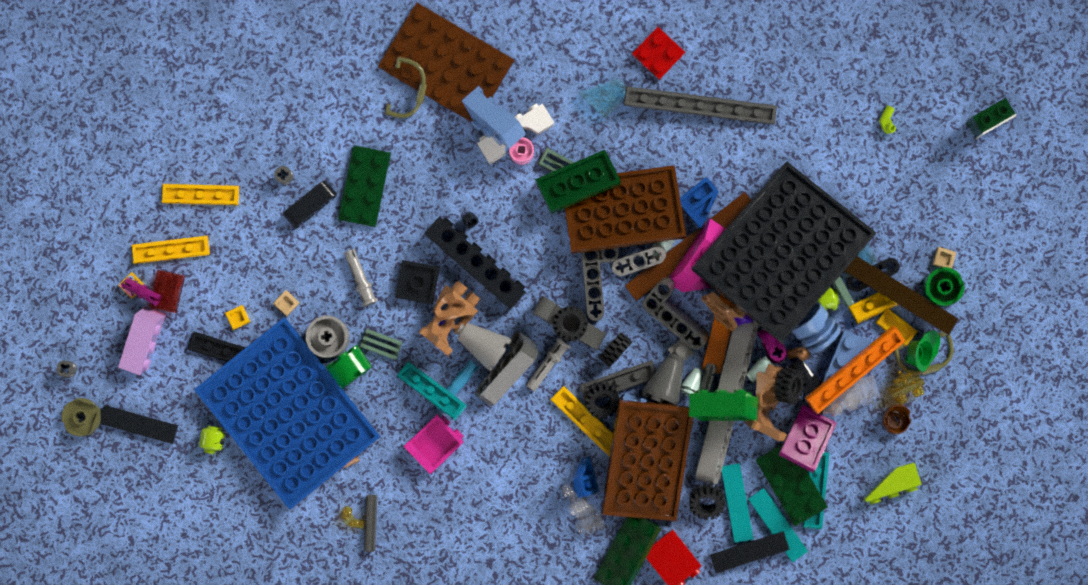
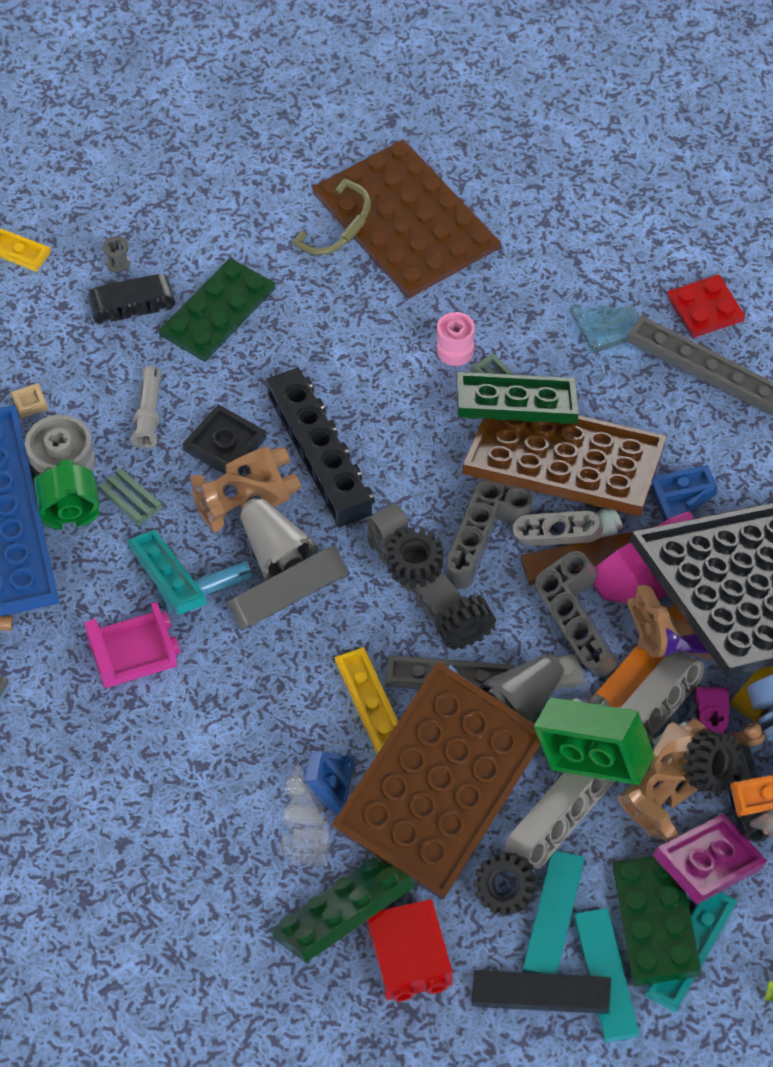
camera: 20 degrees right, 30 degrees down
(466, 220) = (346, 394): black hinge -> none
(493, 120) = (432, 276): medium blue wedge -> none
(535, 120) = (491, 314): white arch -> none
(553, 355) = (367, 604): light grey pin -> none
(607, 409) = (396, 668): black tyre -> none

